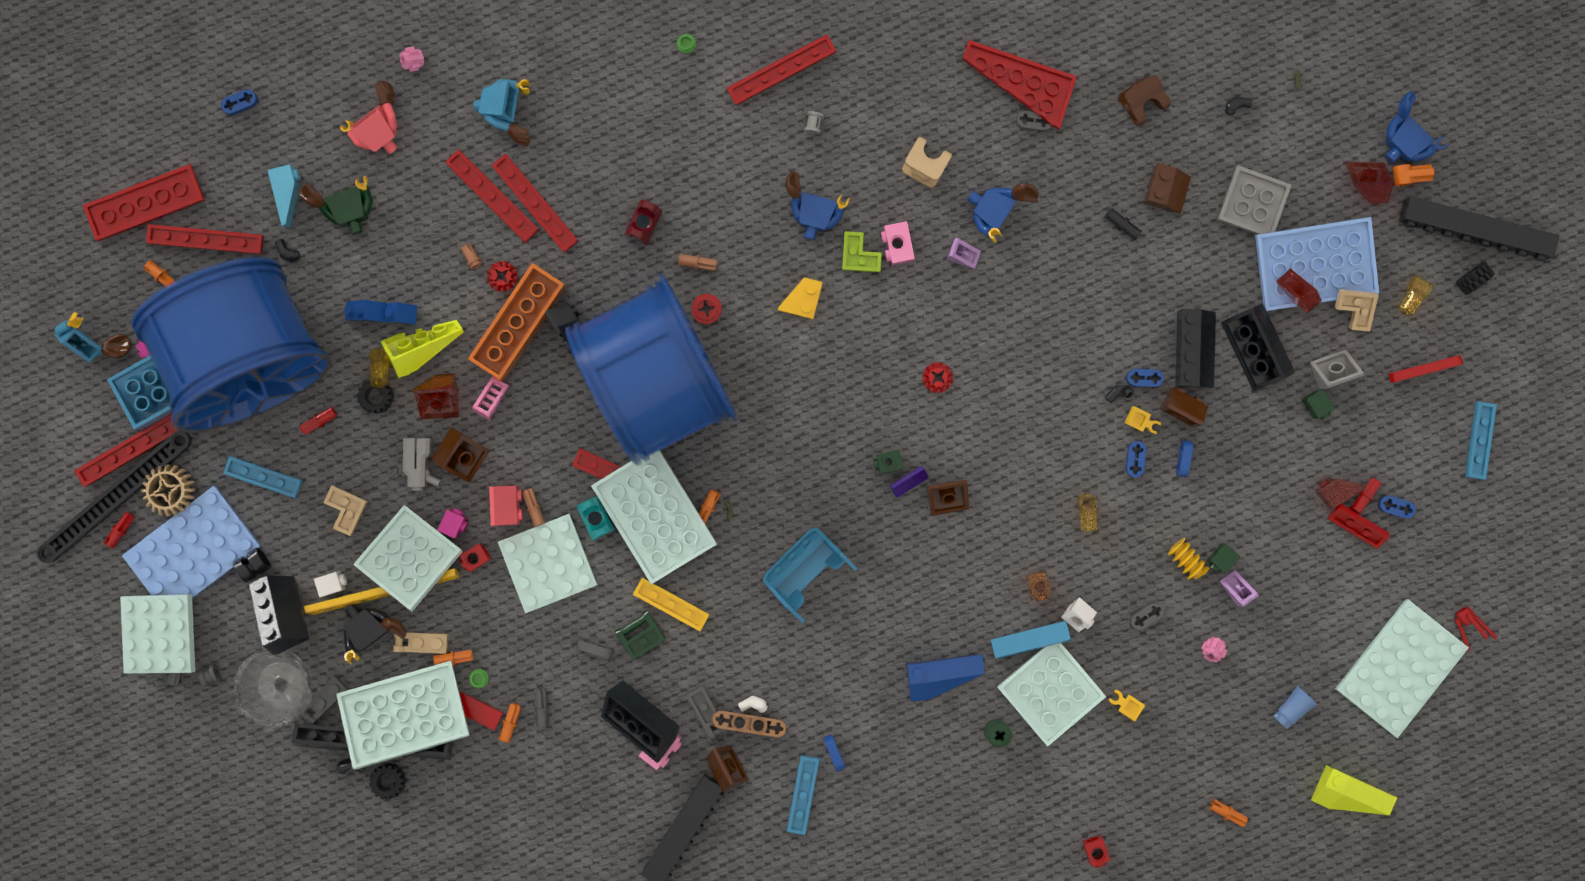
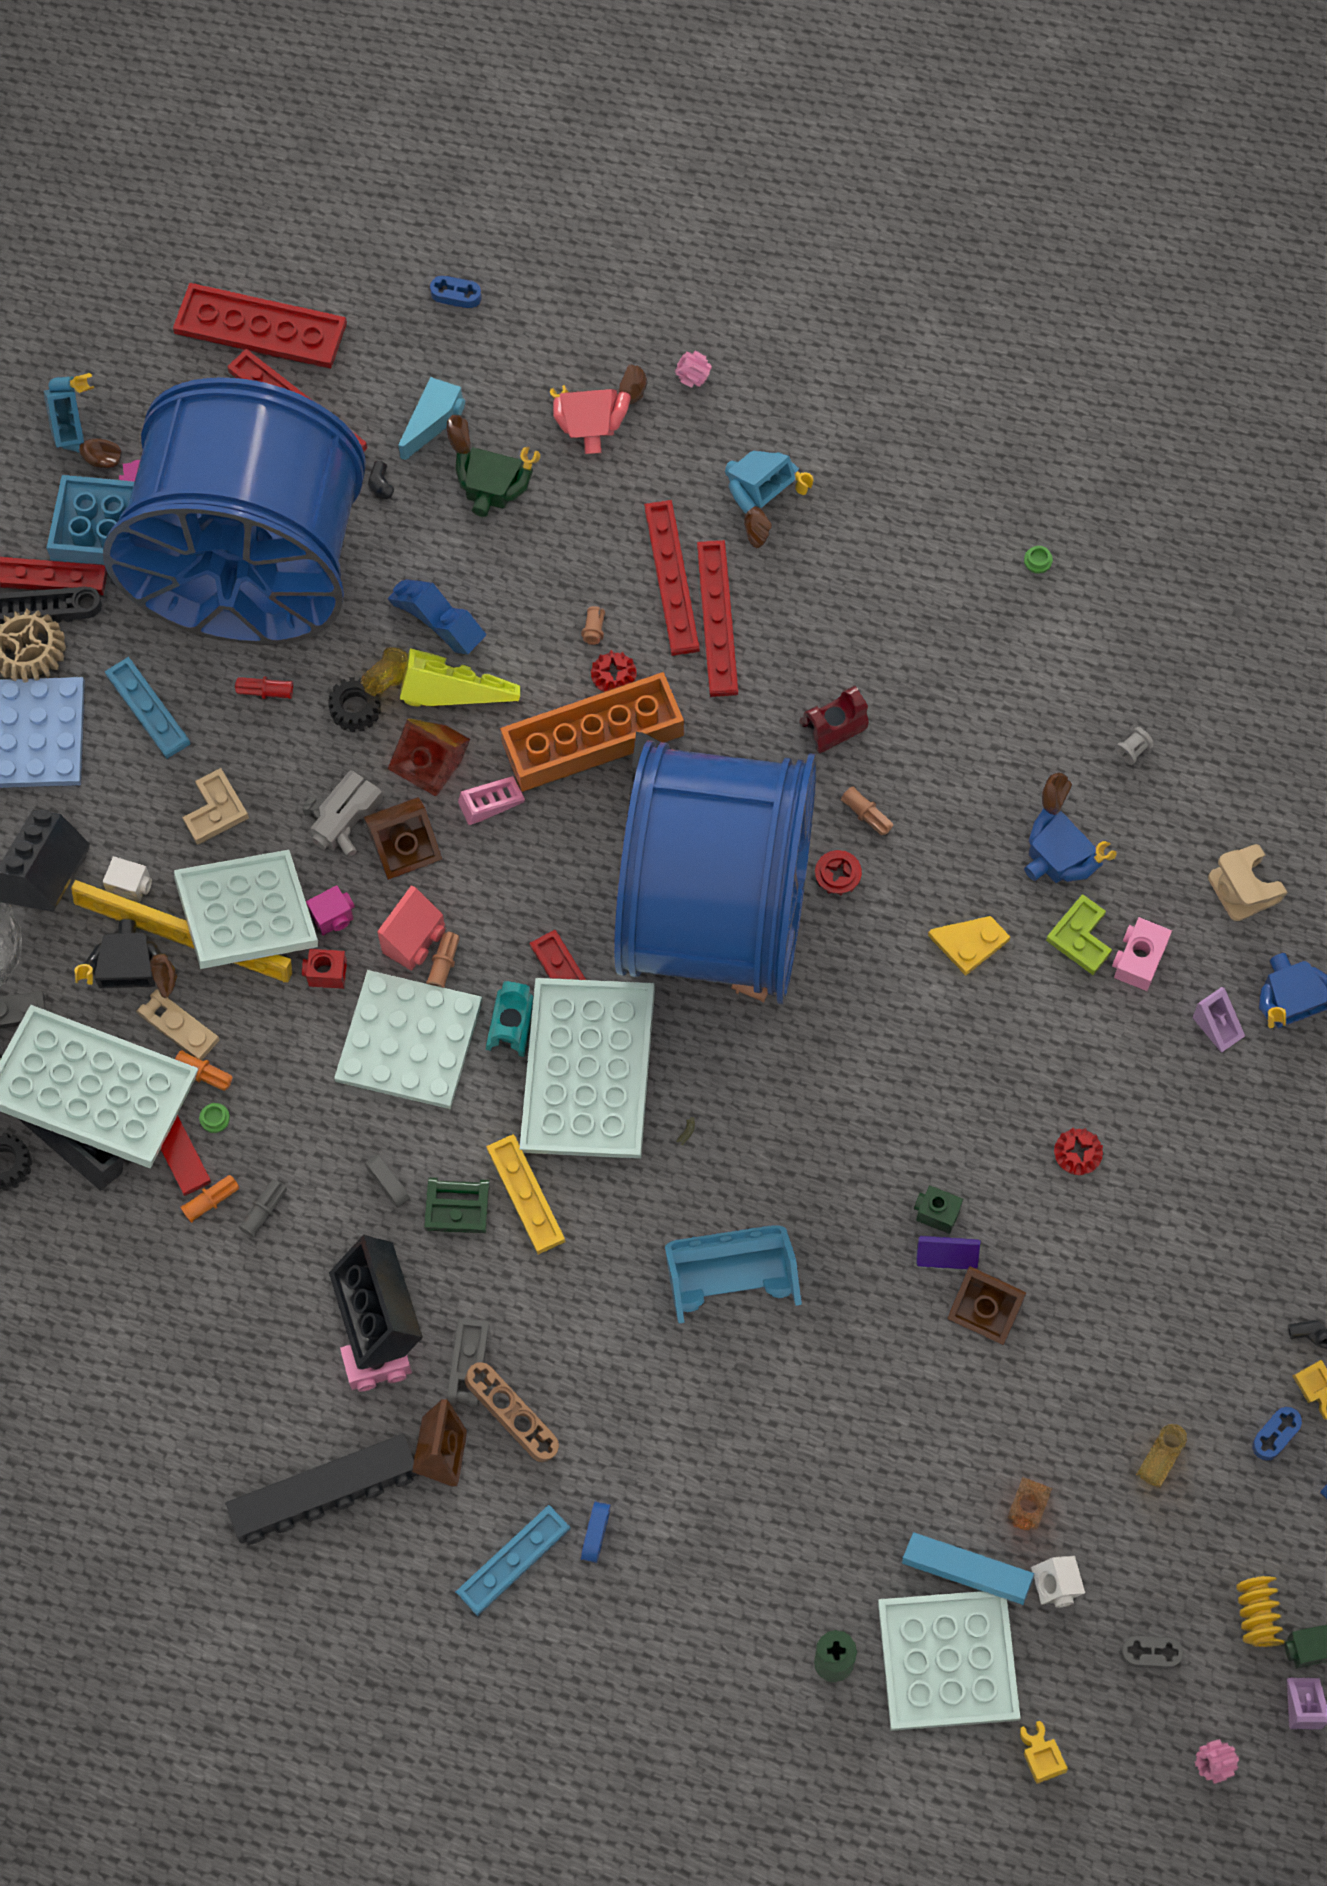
camera: 35 degrees right, 20 degrees down
(249, 566) = (55, 794): black wheel -> none
(709, 504) = (665, 1105): orange axle -> none
(754, 702) = (538, 1392): white arm -> none
(781, 70) = (1136, 661): red plate -> none
(938, 676) = (807, 1530): blue wedge -> none

